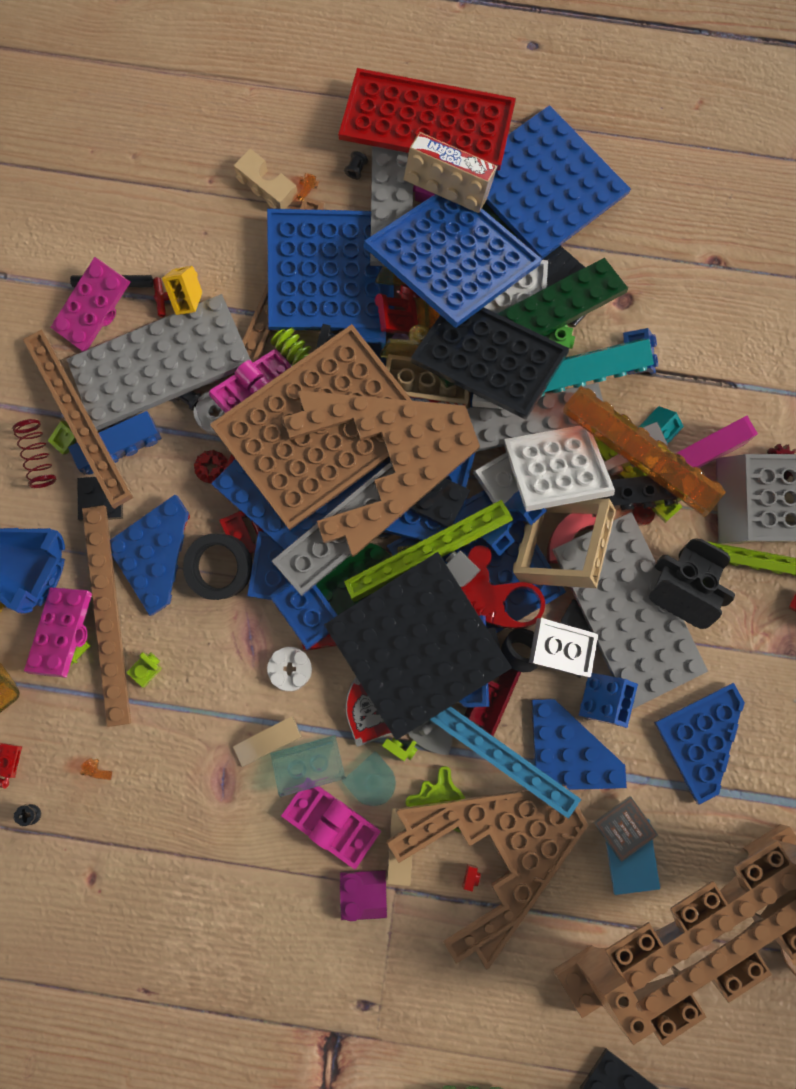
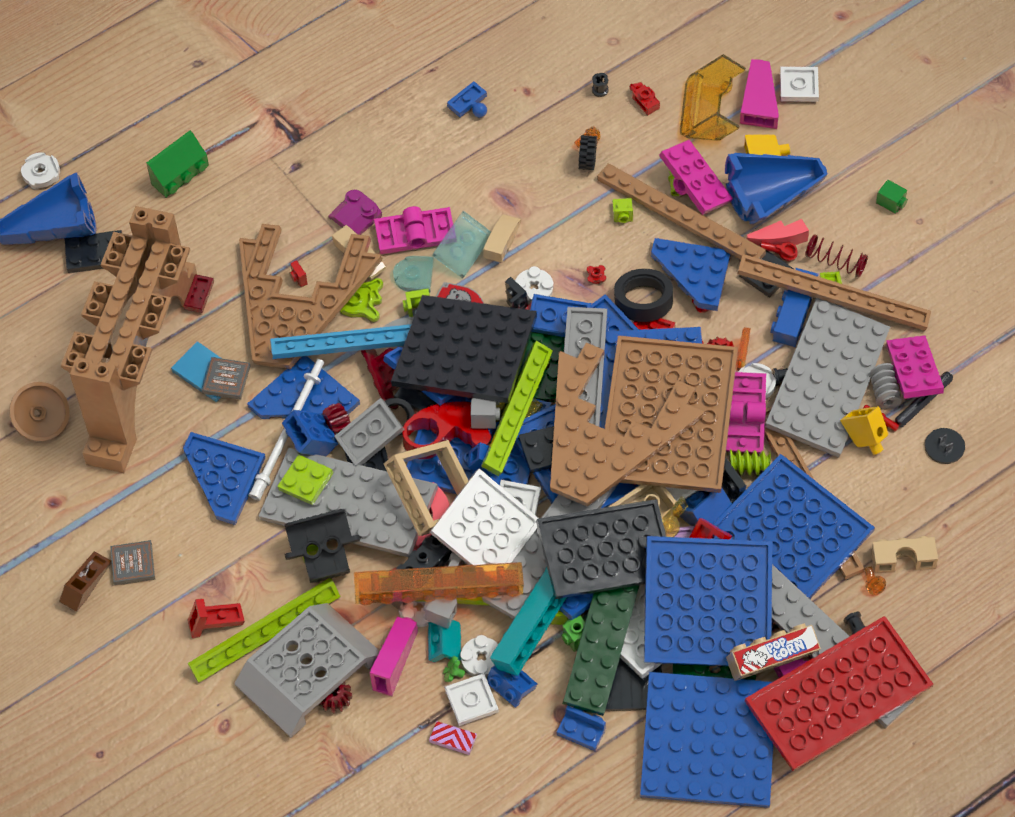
camera: 140 degrees right, 20 degrees down
(53, 516) = (778, 233): none -> coral slope
(64, 498) = (787, 251): none -> red plate
(115, 749) = (587, 152): none -> black tyre
(127, 313) = (885, 386): none -> light grey piece
(139, 236) = (945, 445): none -> black piece
(151, 919) = (468, 99): none -> blue plate
(193, 446) = (743, 350): none -> clear orange tile
(230, 635) = (593, 278): none -> red plate
(320, 664) = (515, 294): none -> black bracket
(571, 945) = (198, 293): none -> dark red plate
(572, 693) = (336, 417): none -> dark red gear
(625, 268) = (582, 728): none -> blue bracket
(650, 384) = (470, 653): none -> white plate
(650, 659) = (305, 479): none -> lime plate
(675, 399) = (453, 670): none -> bright green plant
(675, 701) = (263, 479): none -> white bar
(681, 366) = (471, 699): none -> white plate
(720, 352) = (453, 738): none -> tile

